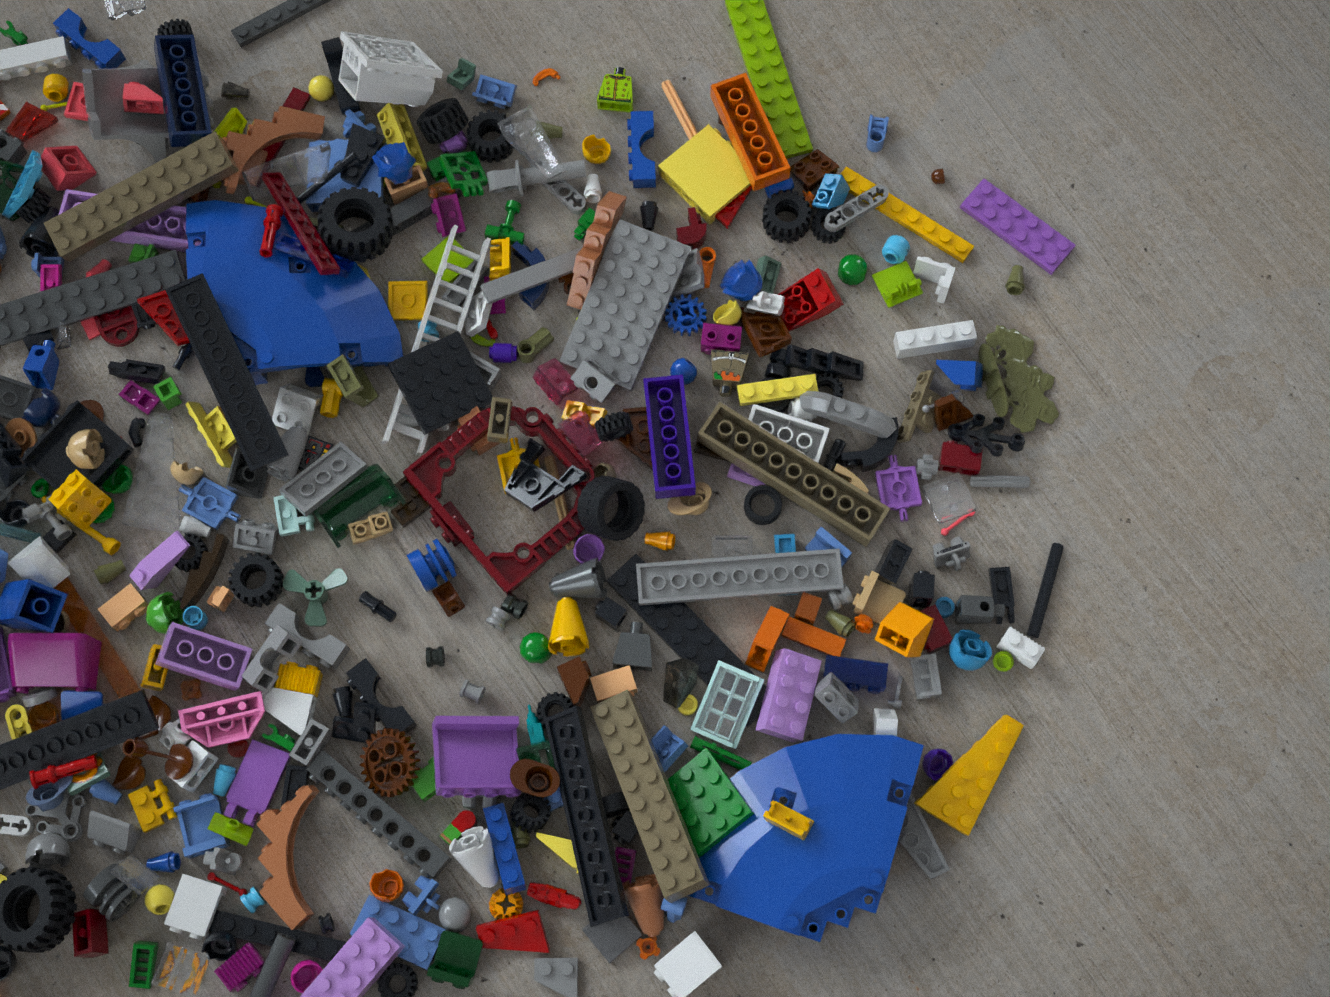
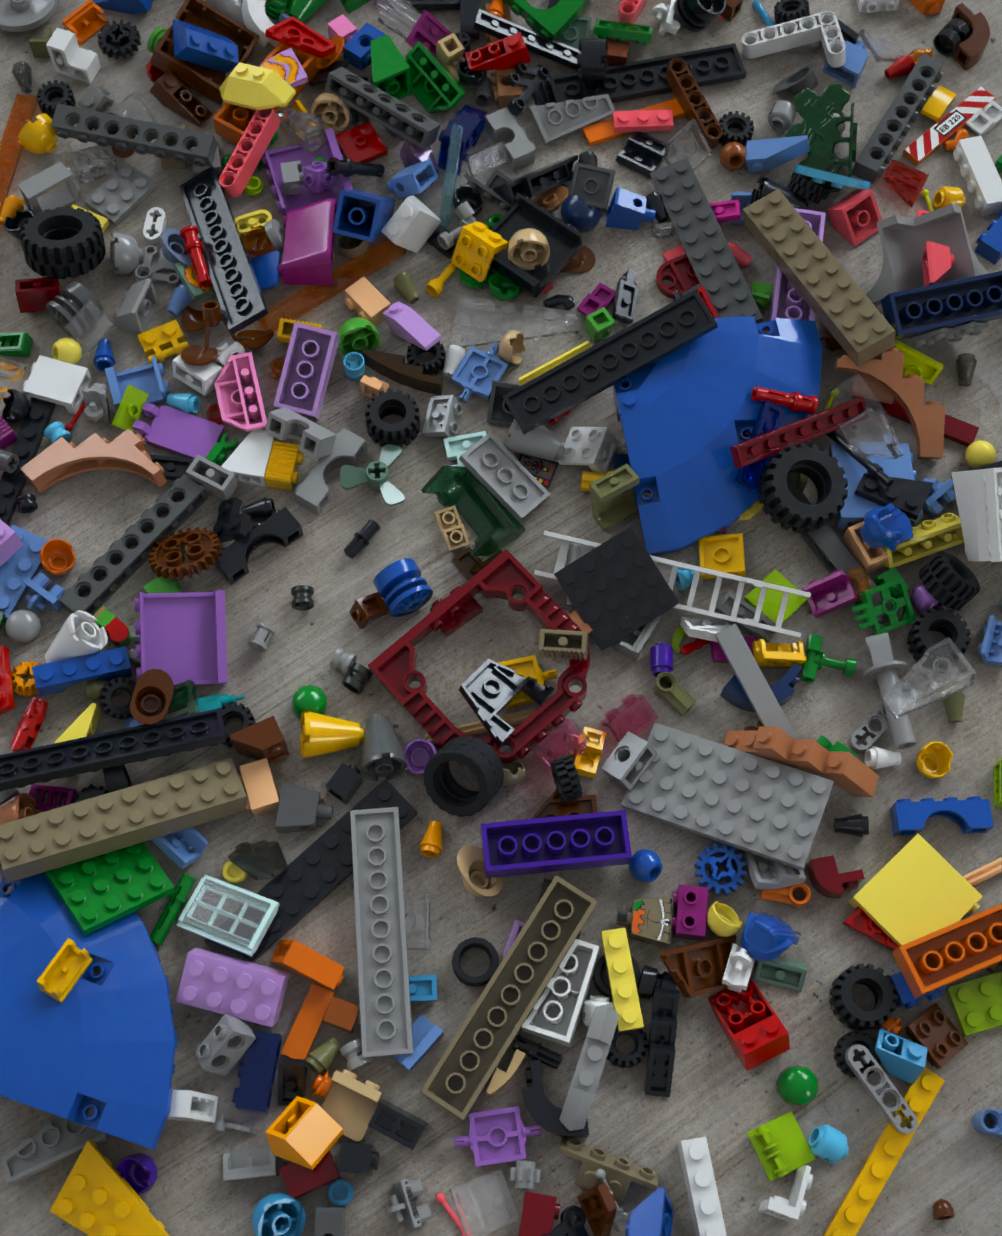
camera: 85 degrees right, 5 degrees down
(862, 646) = (291, 1080): none -> black slope

